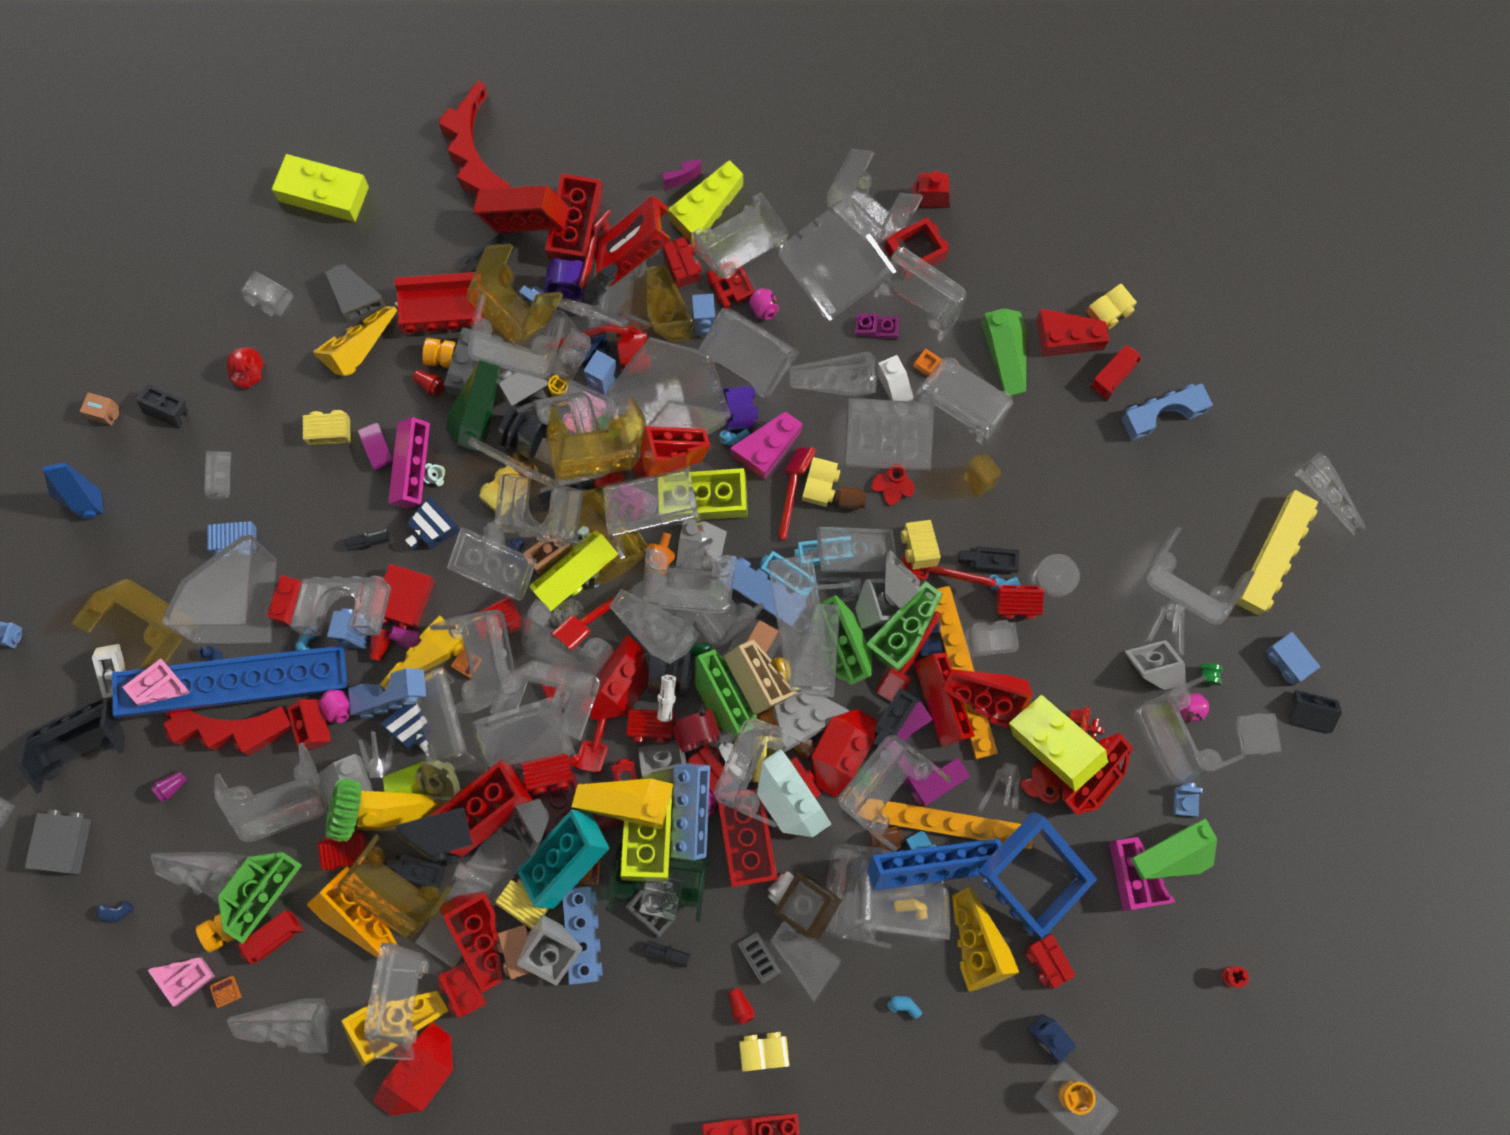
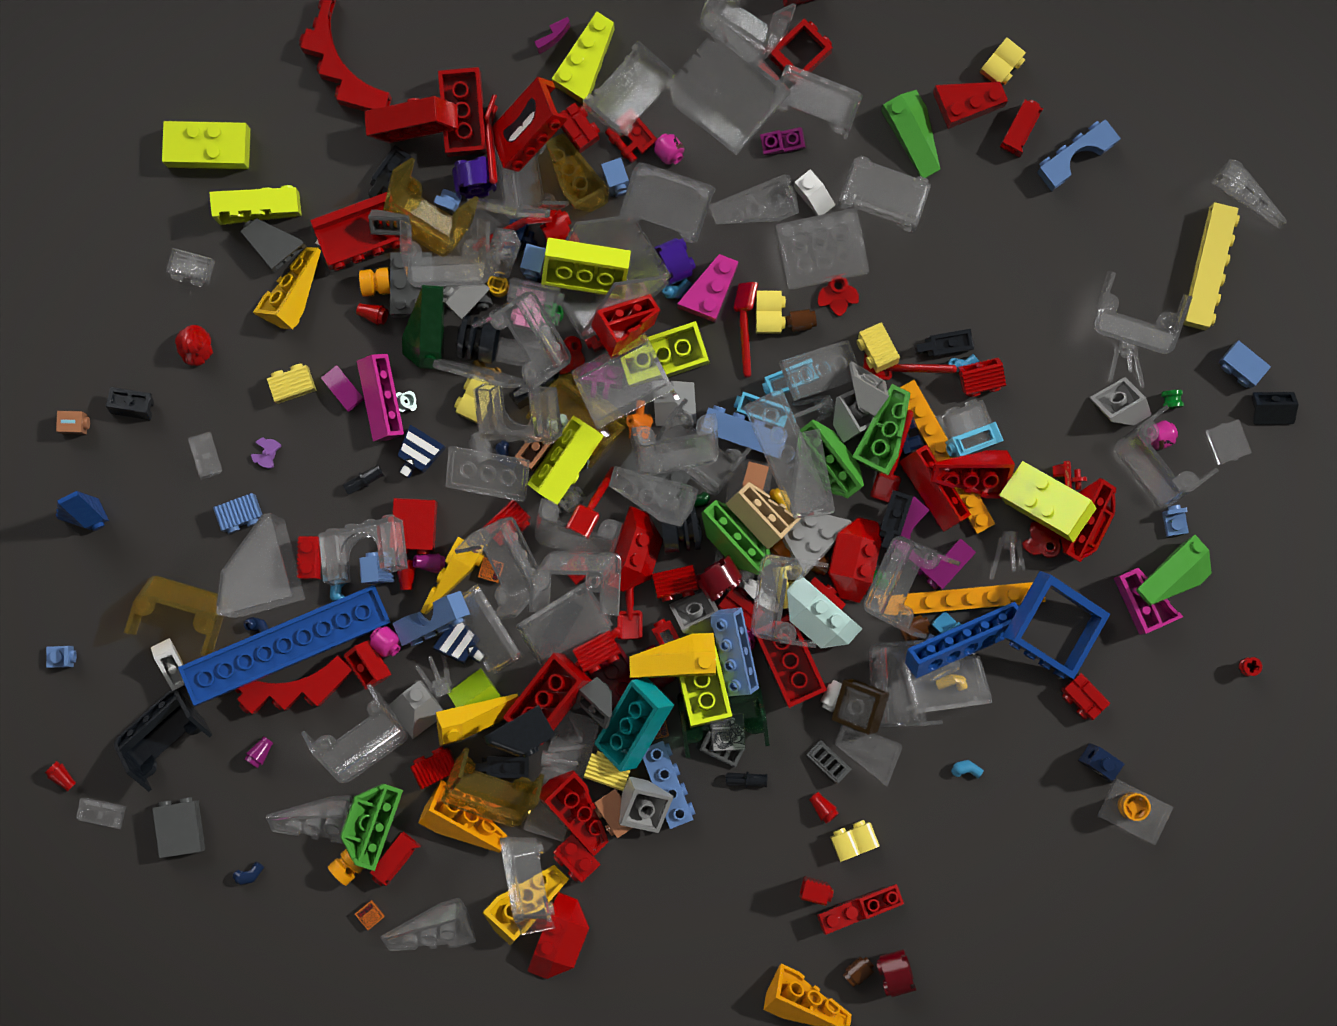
camera: 10 degrees left, 10 degrees up
(155, 685) = (222, 668): bright pink wing -> none
(181, 979) = (328, 914): bright pink wing -> none
(282, 490) = (270, 447): none -> medium lavender piece
(332, 248) = (262, 203): none -> neon yellow wedge
(343, 810) = (426, 733): bright green gear -> none
(438, 780) = (502, 684): olive plate -> none
(457, 303) = (383, 229): none -> dark grey slope
(596, 451) = (557, 343): clear yellow windscreen -> none
(597, 286) = (508, 181): black hinge -> none
(645, 381) = (583, 266): none -> neon yellow brick
(666, 698) = (685, 556): white pin -> none
(707, 1097) = (816, 891): none -> red brick
(926, 362) = (840, 165): orange tile -> none
(982, 474) = (918, 265): clear yellow brick -> none
(983, 949) = (1024, 701): yellow wedge -> none
(997, 661) = (974, 441): none -> medium azure window
(1057, 575) = (1011, 342): clear tile -> none

